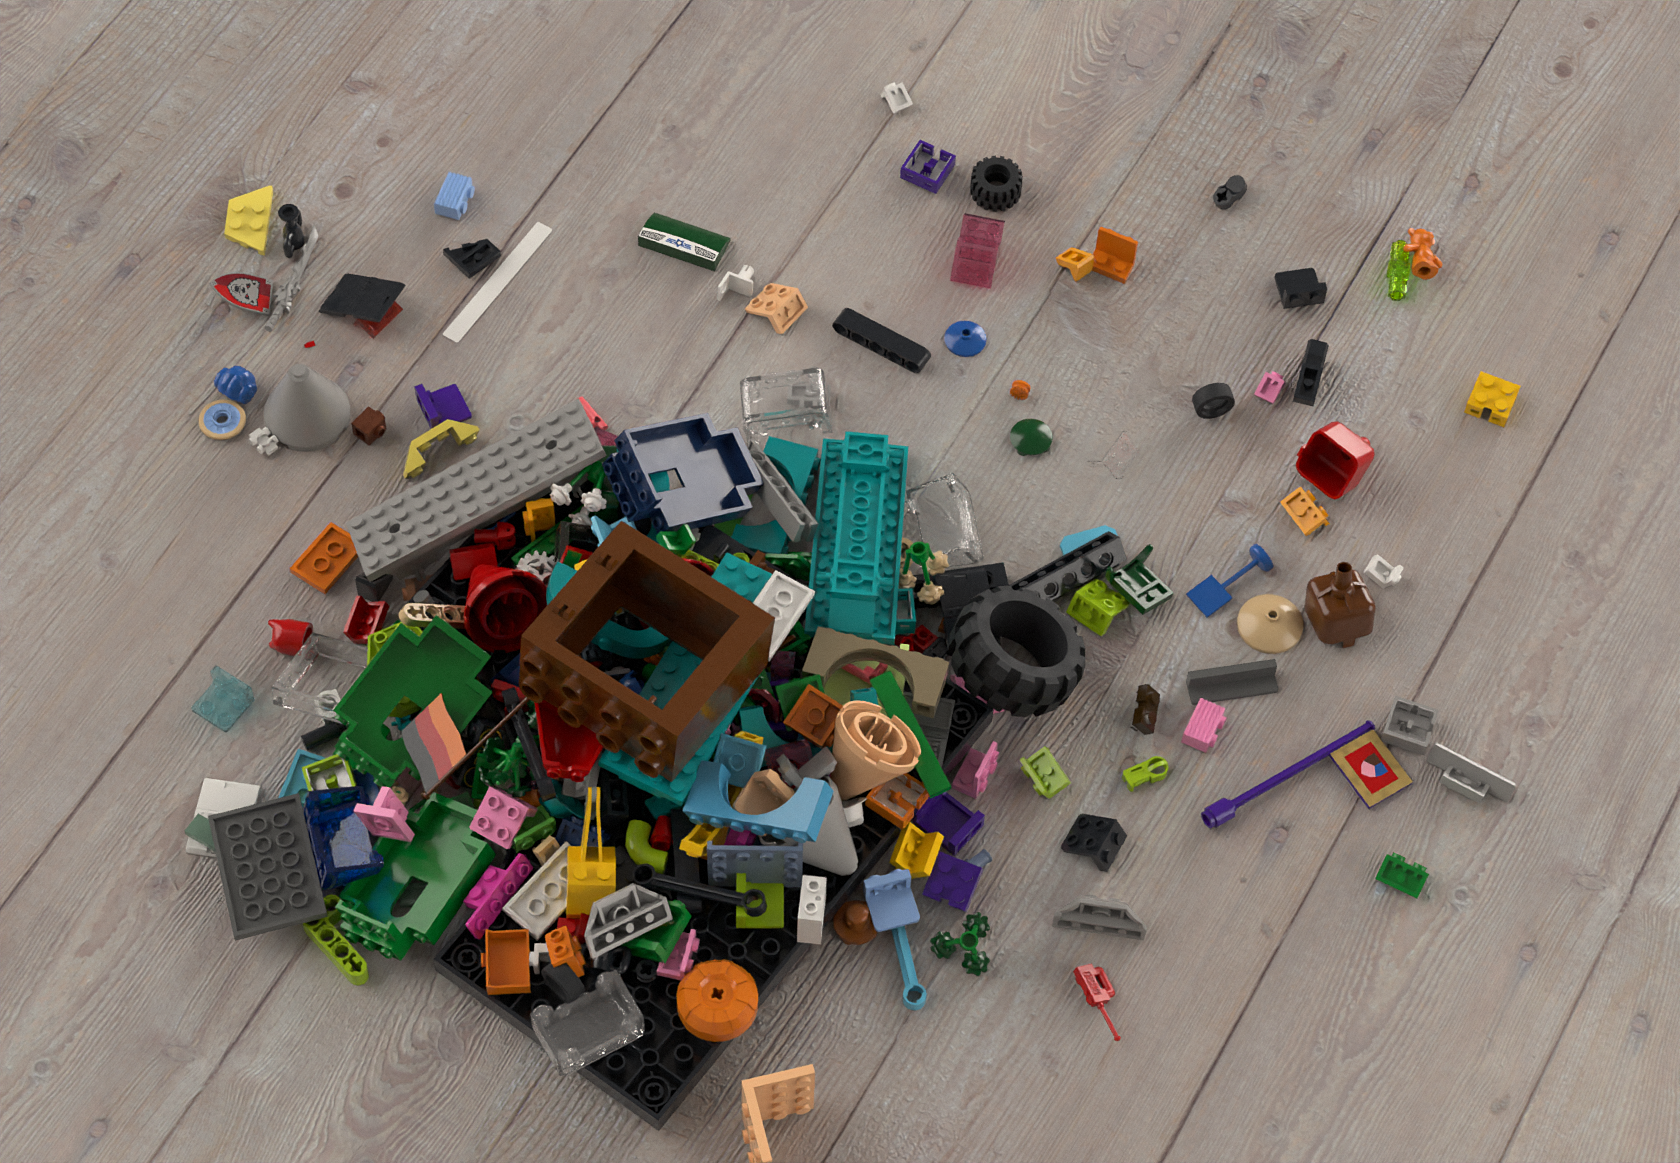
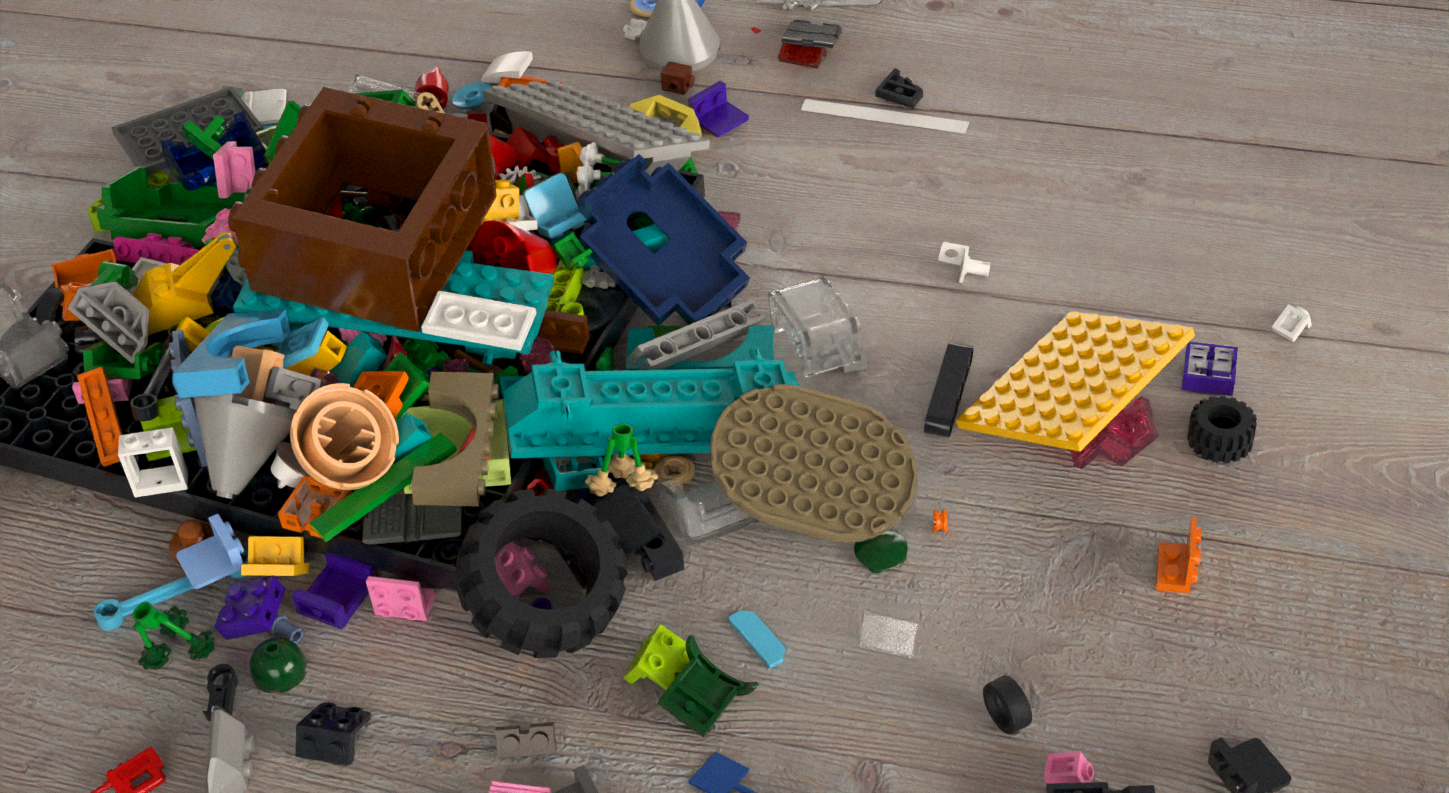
camera: 80 degrees right, 15 degrees down
(224, 700) = (374, 68): clear light blue bracket -> none
(276, 566) = (508, 65): none -> white slope
(309, 596) = (470, 95): none -> medium azure dish
(332, 828) = (208, 139): none -> green bracket
(454, 196) = (961, 59): light blue brick -> none
(558, 917) = (116, 272): none -> green piece
(592, 415) = (750, 211): coral hose -> none
(683, 241) = (1000, 217): dark green slope -> none
(717, 1000) = (51, 429): orange piece -> none
(730, 949) = (101, 414): none -> orange plate
(780, 304) = (950, 301): light nougat bracket -> none
(920, 251) = (1075, 380): none -> yellow plate
(956, 445) = (813, 463): none -> dark tan tile
(965, 345) = (994, 462): blue dish -> none
(1013, 873) = (277, 665): none -> dark green cylinder
(1034, 917) = (223, 694): none -> black piece
(1045, 773) = (411, 660): lime bracket -> none
(1078, 262) = (1148, 528): light orange slope -> none
(1106, 545) = (691, 615): black brick -> none
(1142, 772) = (438, 761): lime piece -> none
(1230, 192) = (1355, 657): black piece -> none

